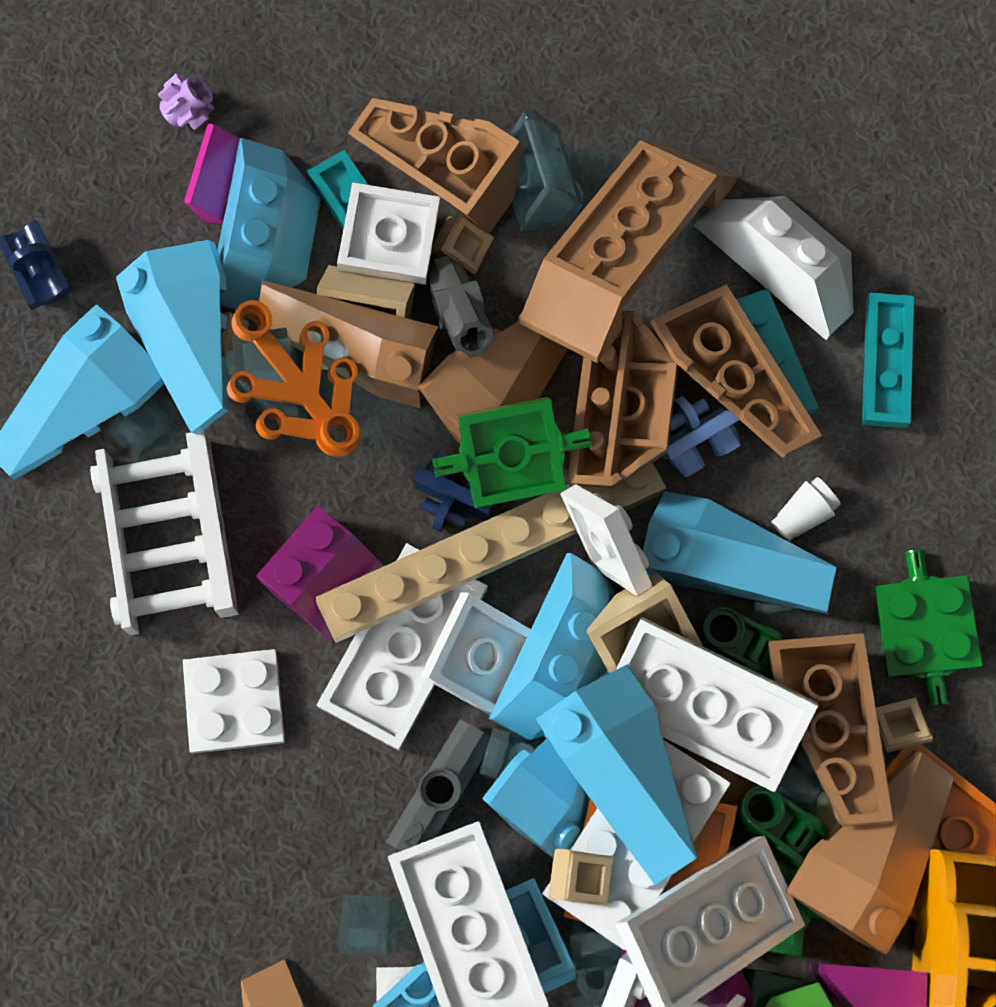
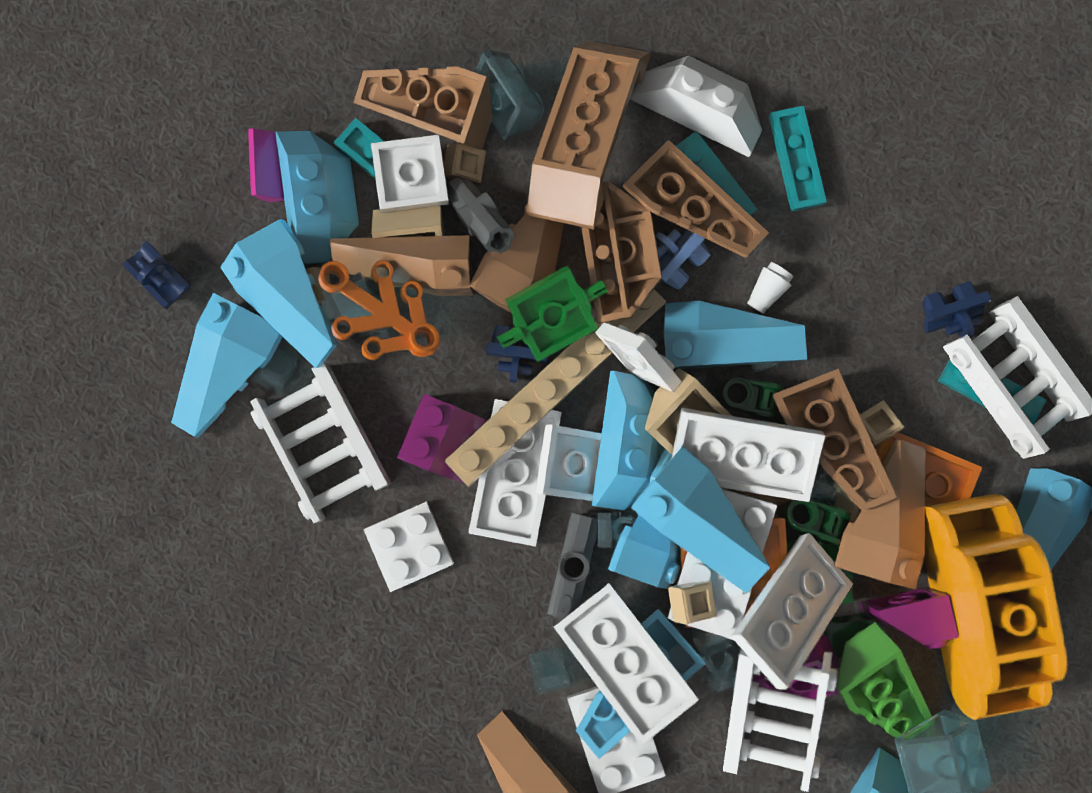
camera: 20 degrees left, 10 degrees up
(186, 101) = (225, 115): lavender gear -> none
(927, 627) = (877, 345): green plate -> none

